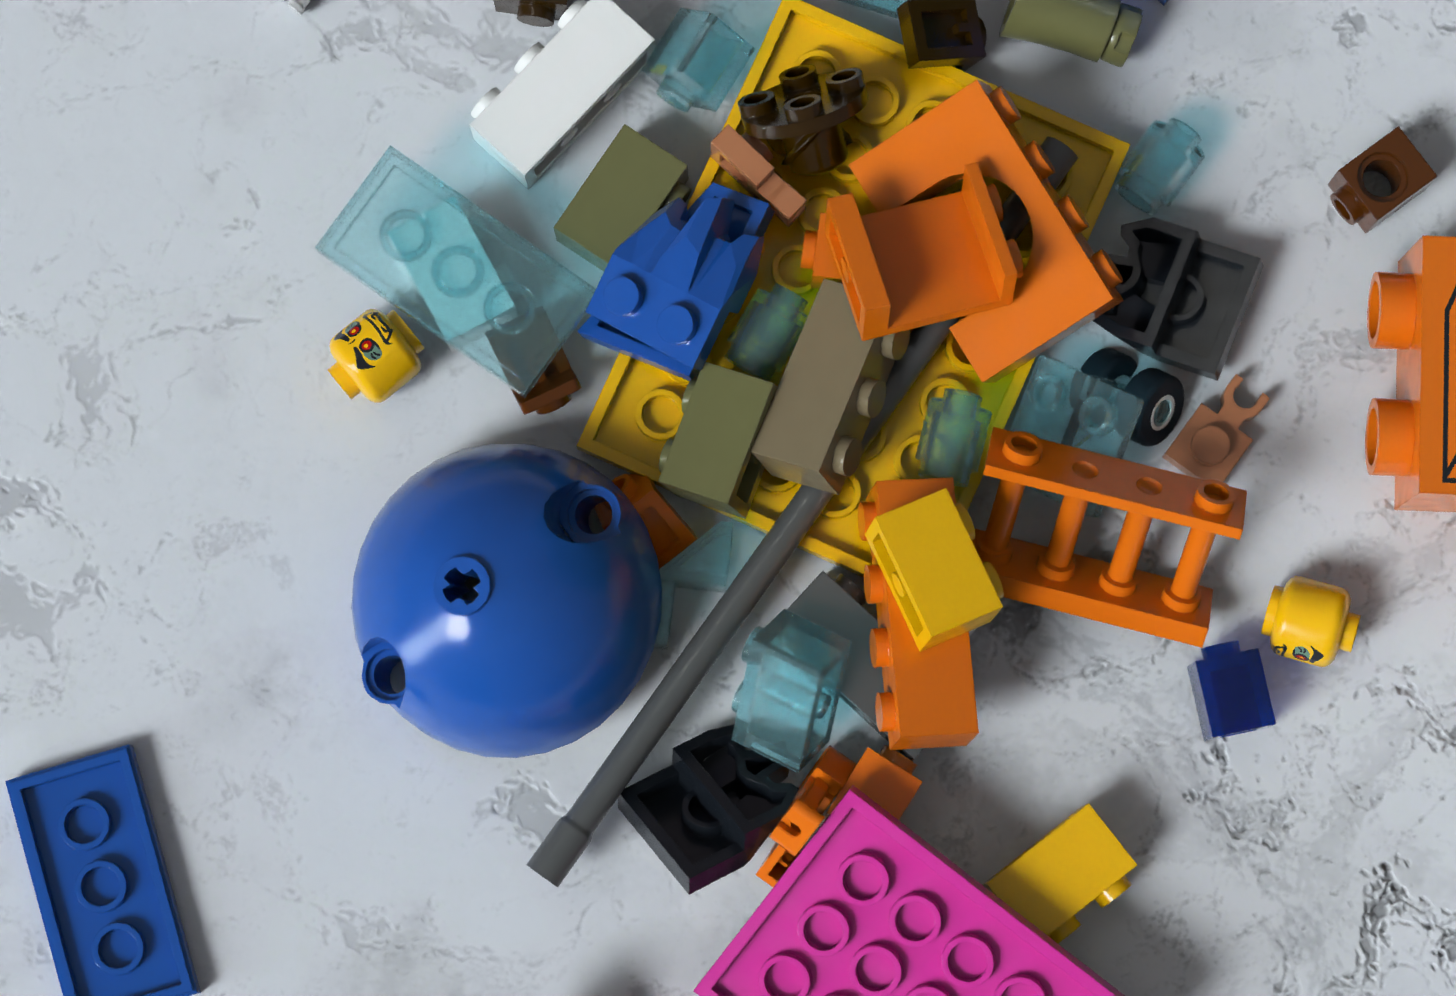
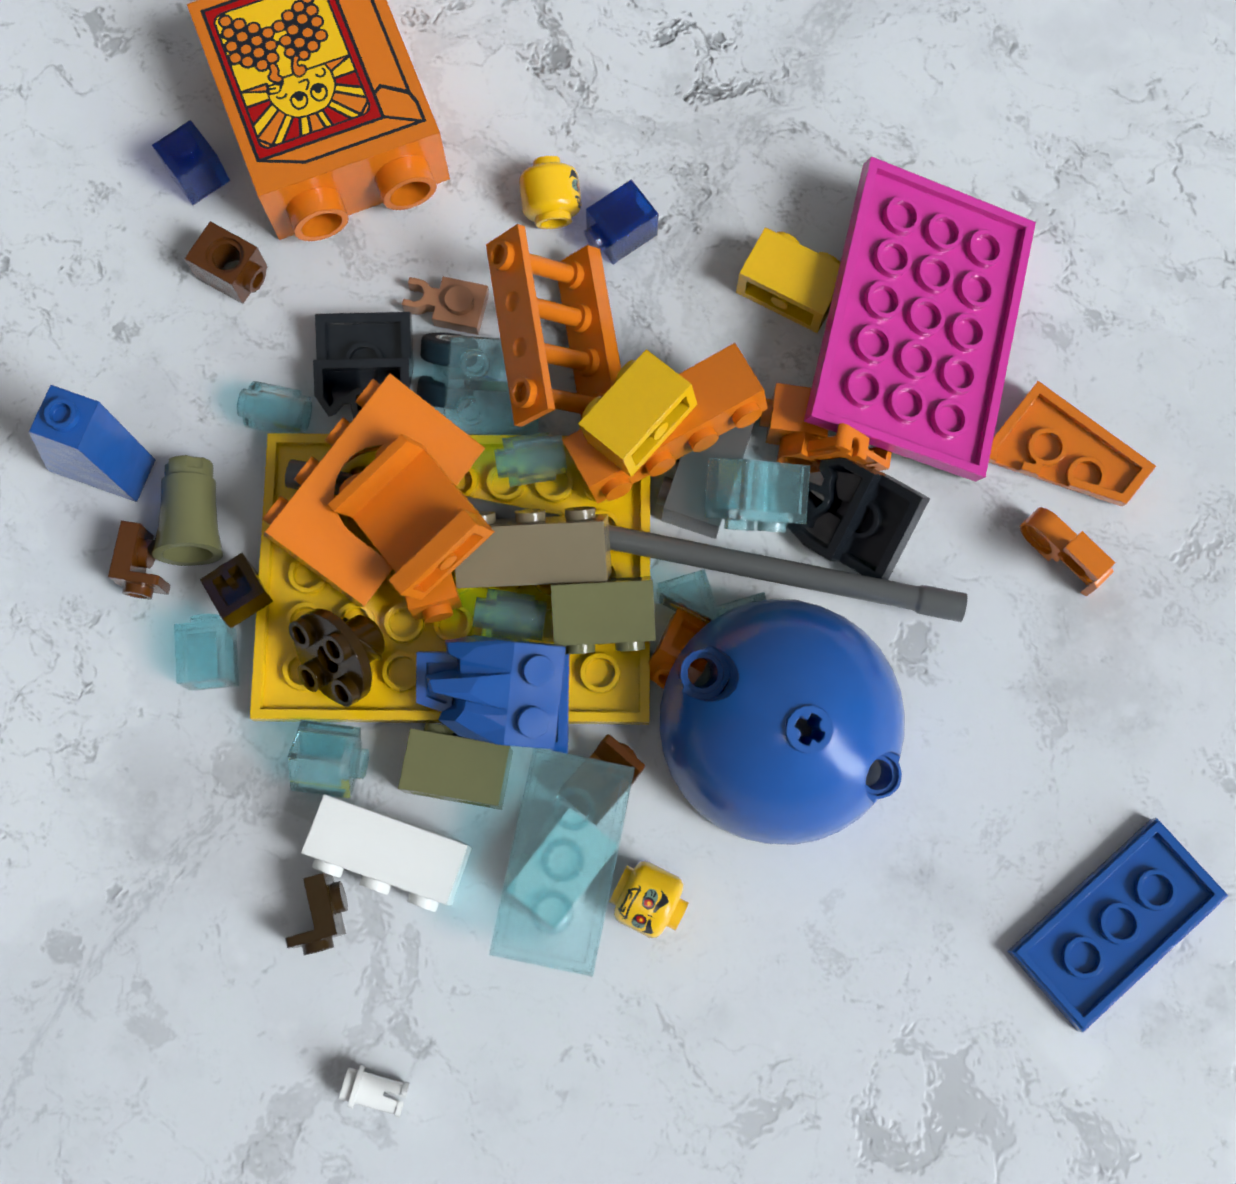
camera: 115 degrees left, 5 degrees down
(748, 163) = (392, 682): nougat plate -> none

